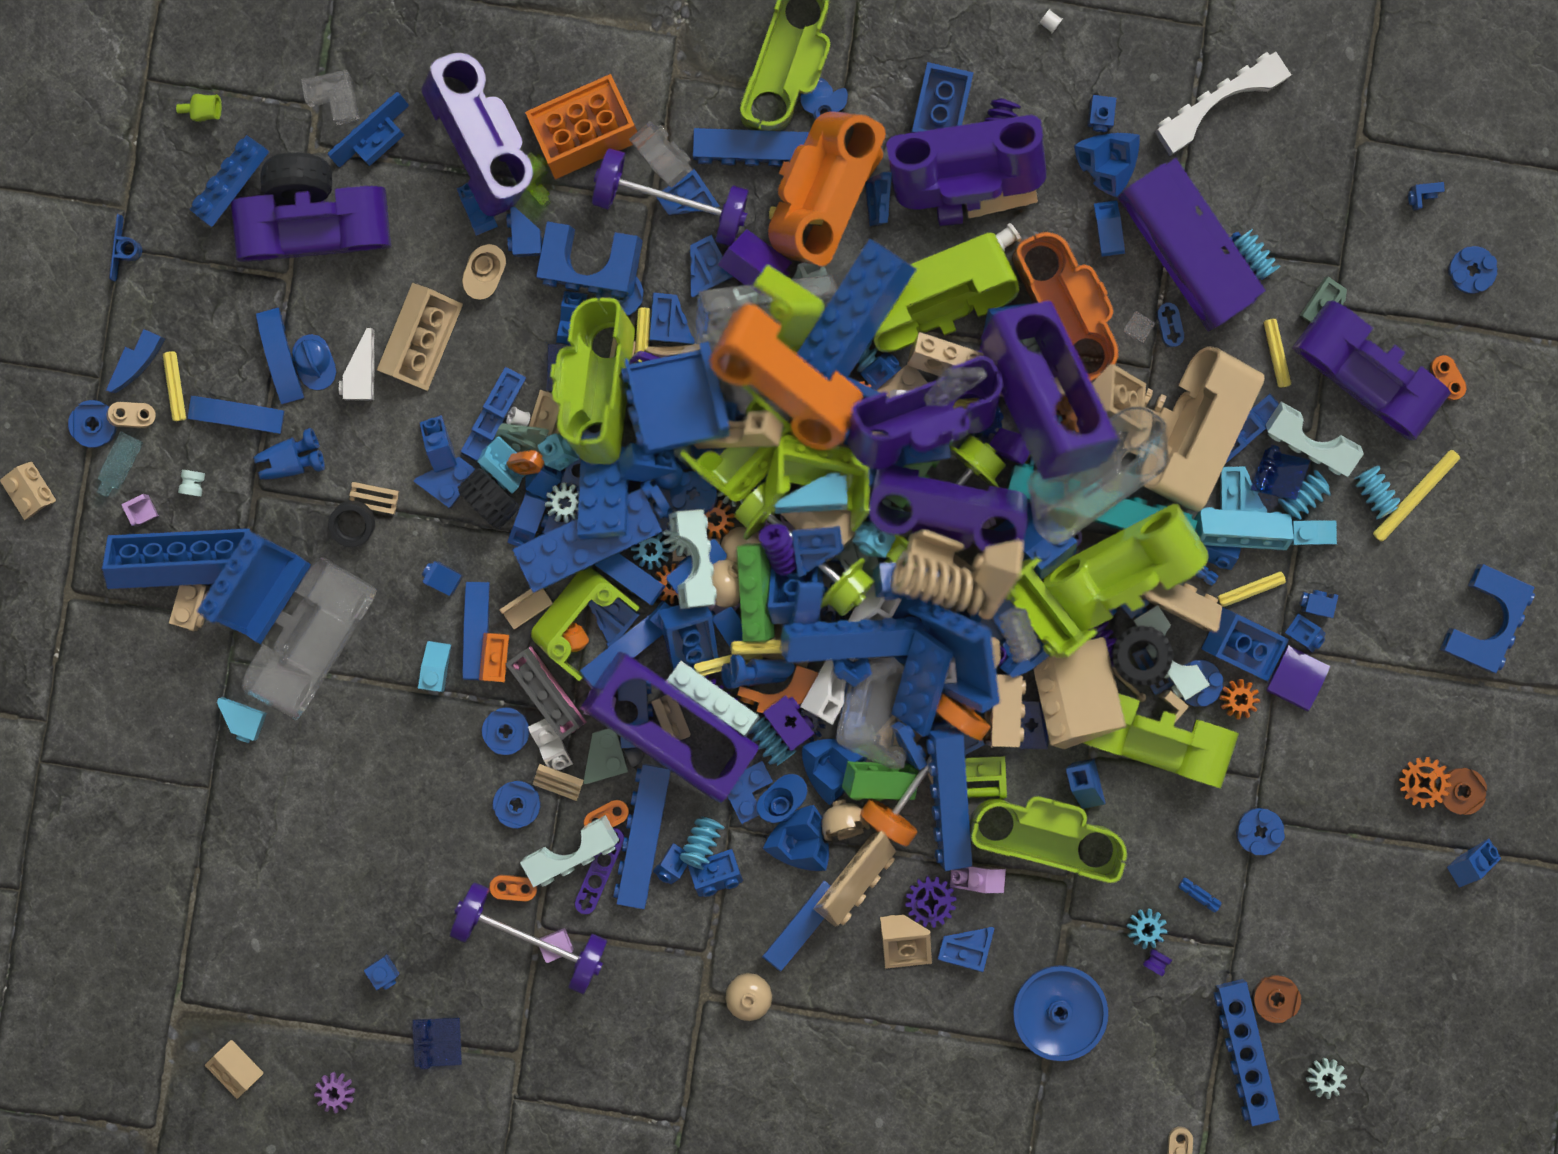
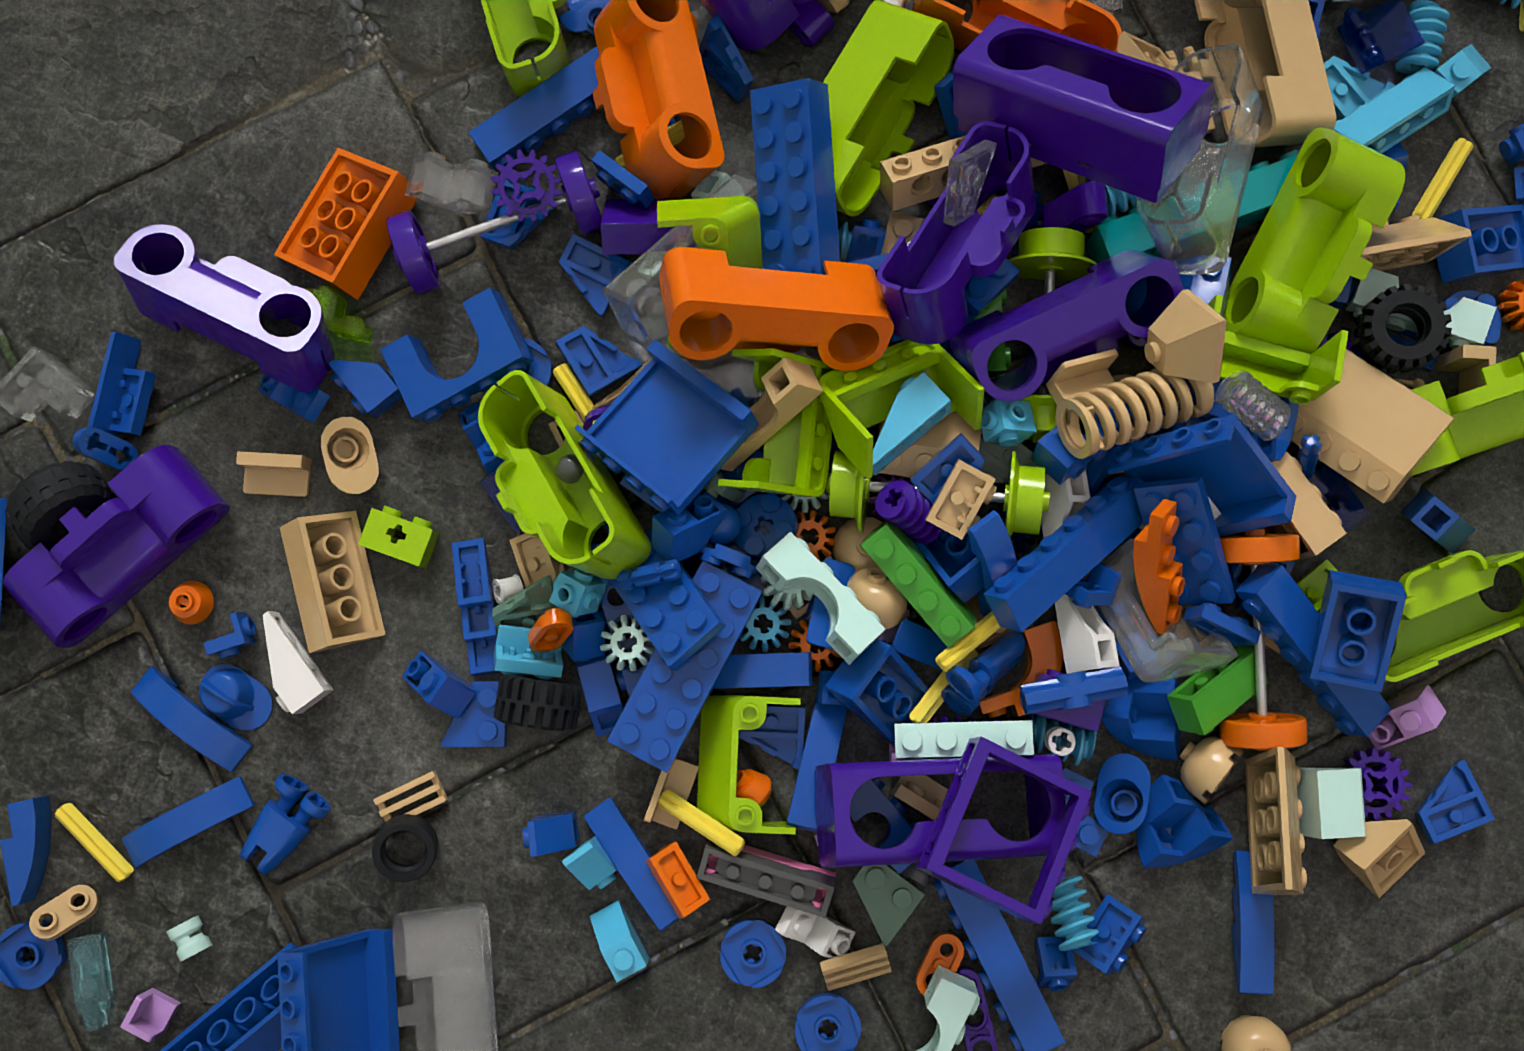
camera: 35 degrees left, 5 degrees down
(331, 293) = (198, 604): none -> orange cone
(333, 330) = (229, 645): none -> blue bracket
(340, 162) = (108, 442): none -> blue beam
(431, 247) = (275, 473): none -> tan panel
(451, 612) = (591, 864): none -> medium azure slope
(480, 354) = (380, 534): none -> lime brick
(531, 635) = (701, 822): none -> light yellow axle
(604, 378) = (569, 469): none -> dark grey hinge
(605, 474) = (649, 575): none -> blue axle
(676, 727) = (952, 812): none -> dark purple window
(699, 181) = (512, 176): none -> dark purple gear
(763, 238) = (622, 181): none -> blue wing
(766, 747) = (1062, 750): none -> white axle
(794, 716) = (1073, 690): none -> blue piece
(810, 563) = (961, 499): none -> tan bracket
(892, 687) = (1156, 572): none -> orange slope
(896, 892) = (1331, 803): none -> light aqua slope
(975, 801) = (1357, 630): none -> blue slope
(1033, 688) = (1309, 454): none -> blue axle

